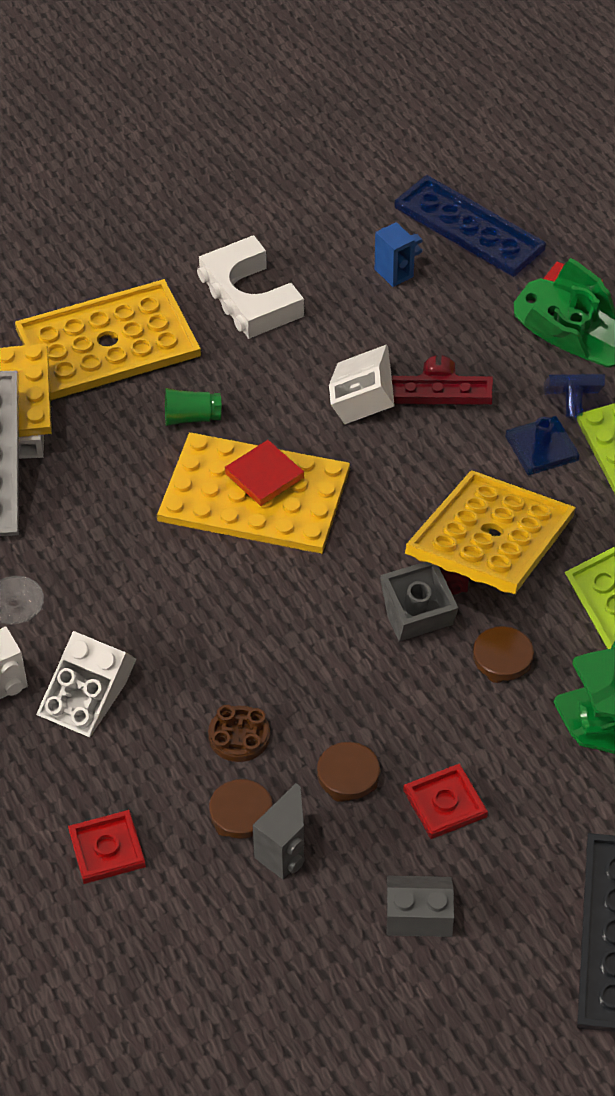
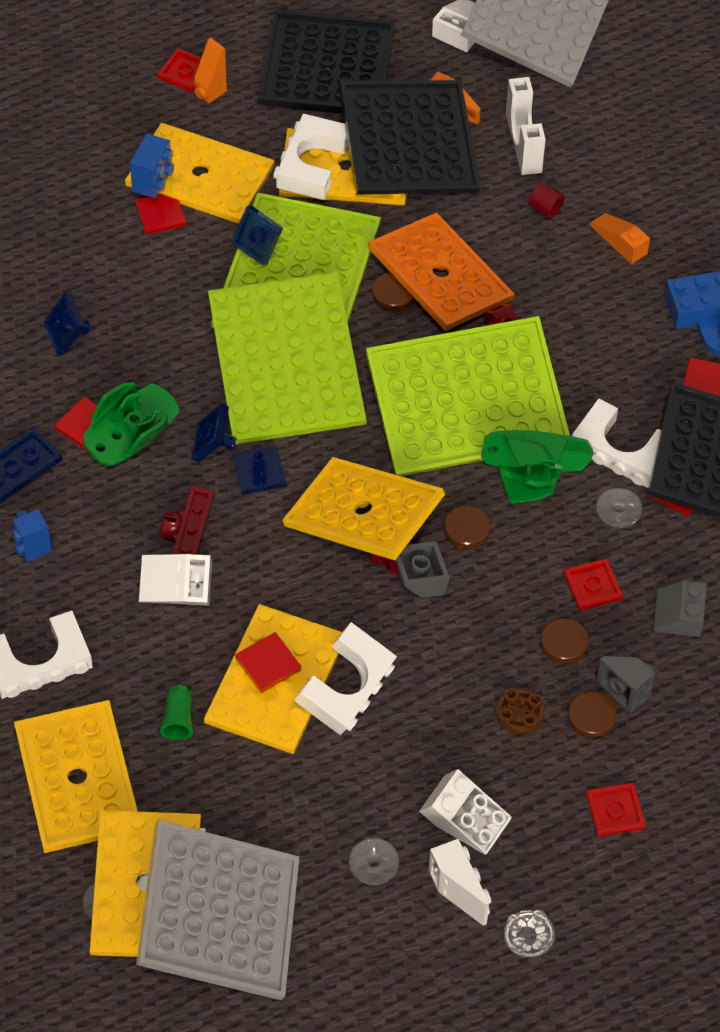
camera: 85 degrees left, 5 degrees up
(277, 572) = (371, 661): none -> white arch
(574, 807) = (621, 500): none -> clear dish

